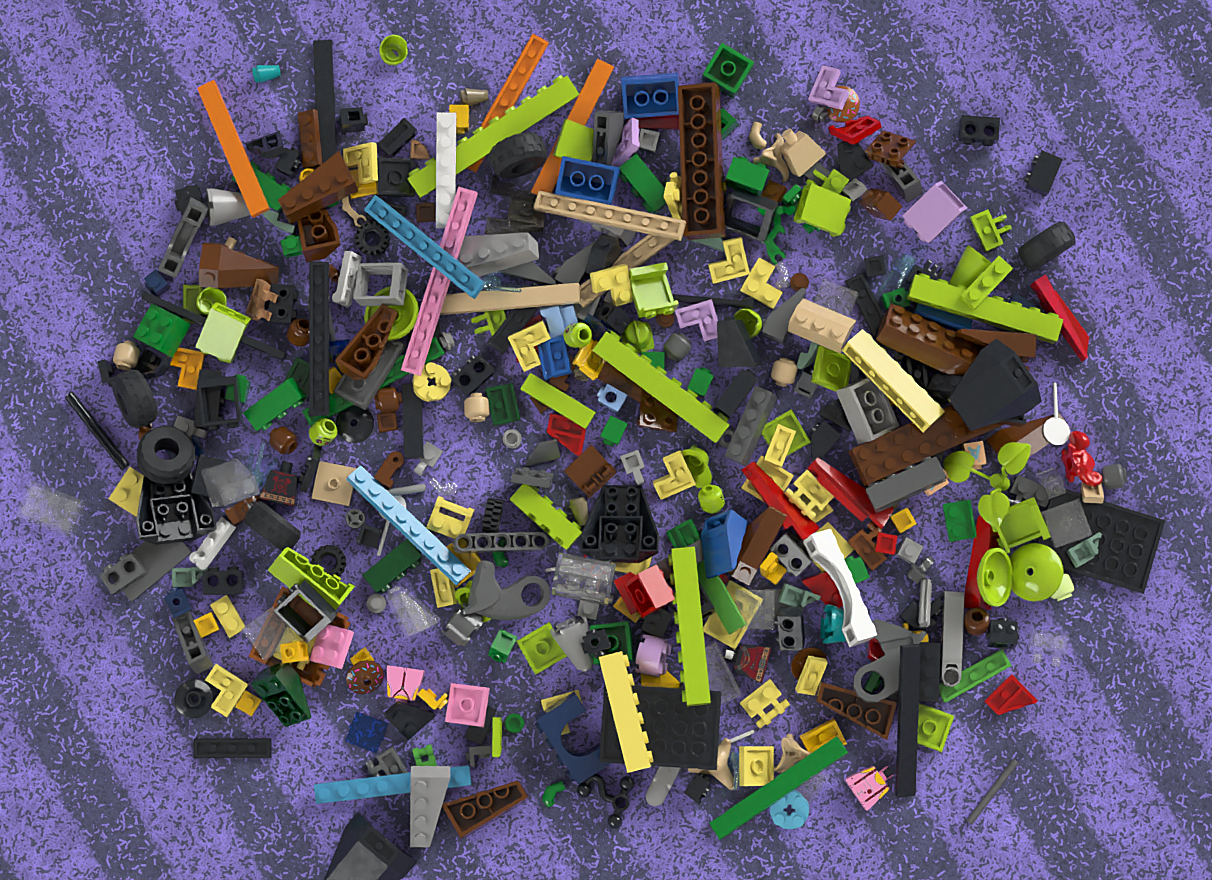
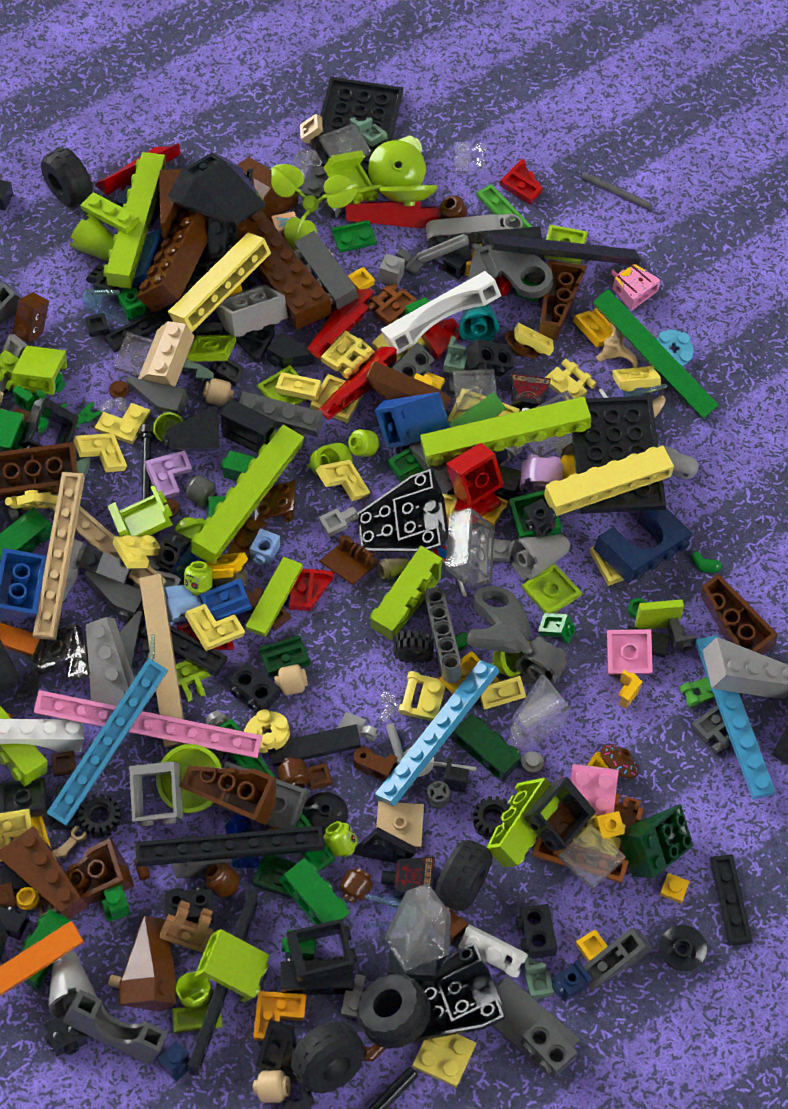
camera: 100 degrees left, 25 degrees down
(161, 330) = (235, 1041): green brick -> none
(228, 616) = (577, 924): light yellow plate -> none
(230, 687) = (663, 908): light yellow plate -> none
(274, 219) = (93, 914): sand green slope -> none
(347, 279) = (131, 836): white plate -> none
(366, 732) = (680, 757): clear blue piece -> none
(403, 683) = (619, 720): bright pink torso -> none
(408, 718) = (657, 710): black wing -> none
(512, 438) = (322, 643): light grey plate -> none
(532, 477) = (364, 612): dark grey plate -> none
(543, 452) = (334, 609): dark grey tile -> none
(613, 431) = (301, 542): green brick -> none
(626, 784) = (680, 493): black piece -> none
(698, 787) = (670, 429): black brick -> none
(886, 543) = (388, 285): red plate -> none
(934, 212) = (36, 273): lavender slope -> none
(987, 230) = (50, 235): lime hinge -> none
(1002, 634) = (464, 187): black head -> none
(1055, 429) = (254, 162): white piece -> none
(1079, 461) = (283, 142): red animal -> none
(1114, 476) = (292, 116): dark grey head -> none

